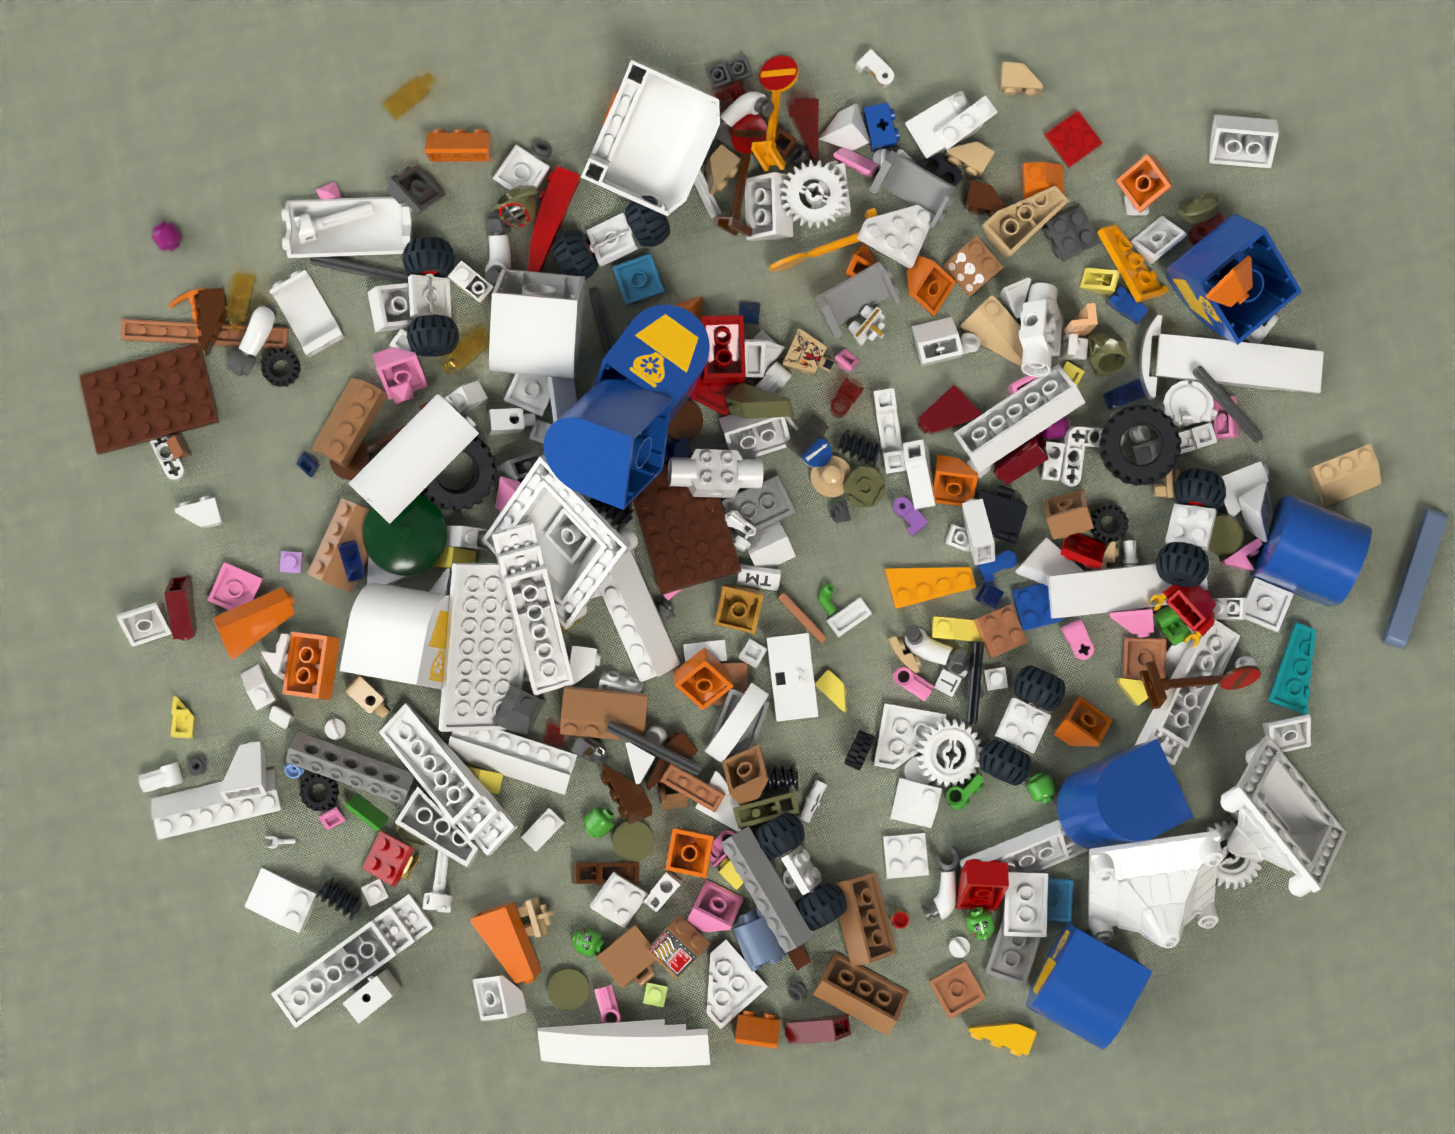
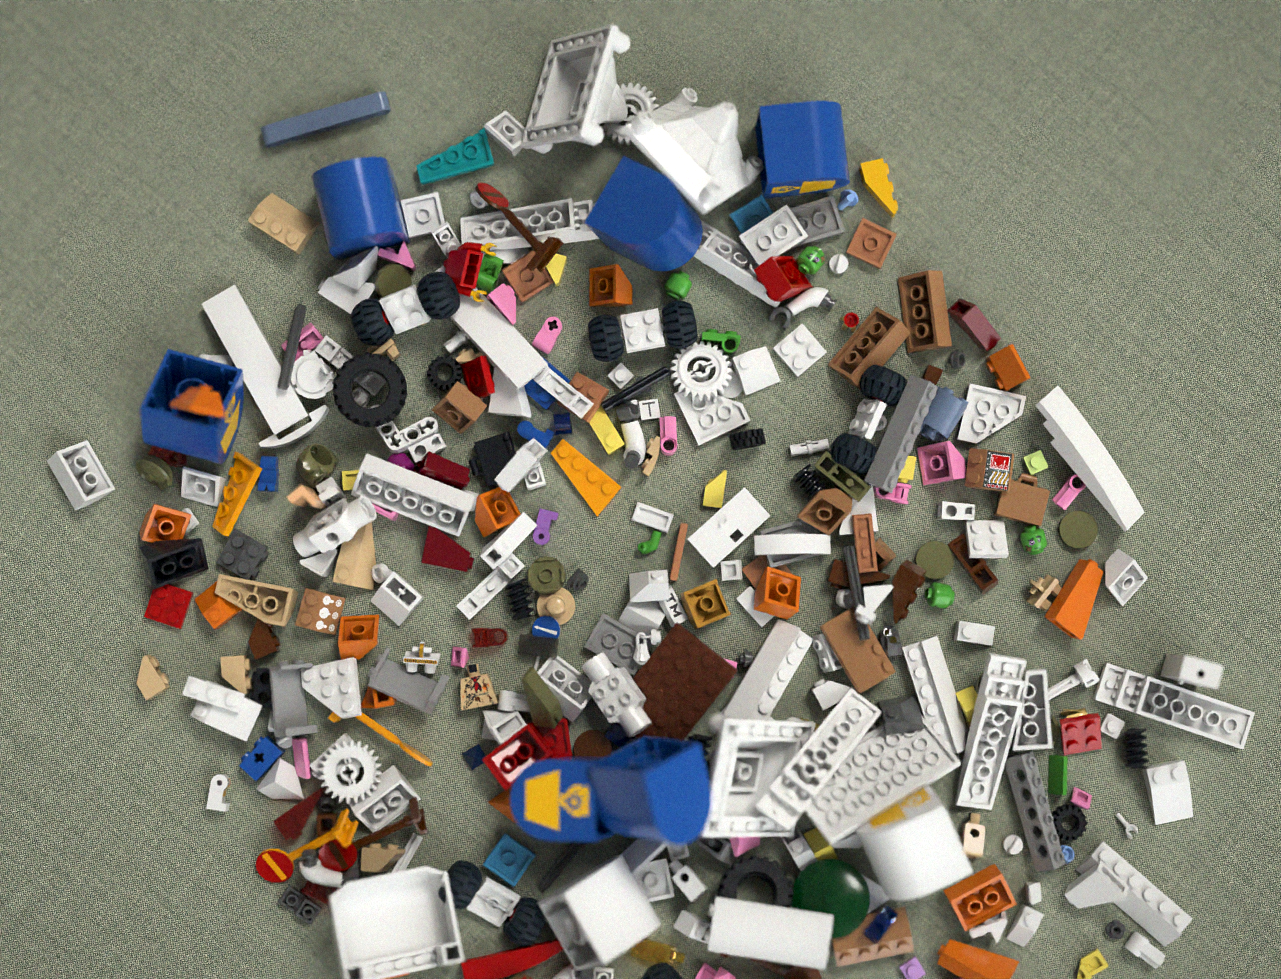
camera: 120 degrees left, 0 degrees up
(558, 741) = (903, 675): clear red plate -> none
(629, 738) = (864, 615): none -> white plate
(689, 852) = (913, 511): orange slope -> none
(790, 569) = (649, 586): none -> white slope
(1012, 999) = (848, 198): none -> light blue plate
(1017, 616) = (563, 392): none -> white slope
(1100, 280) = (264, 508): light yellow slope -> none
(1109, 169) = (173, 560): none -> black slope
(1124, 394) = (339, 429): clear blue leg -> none

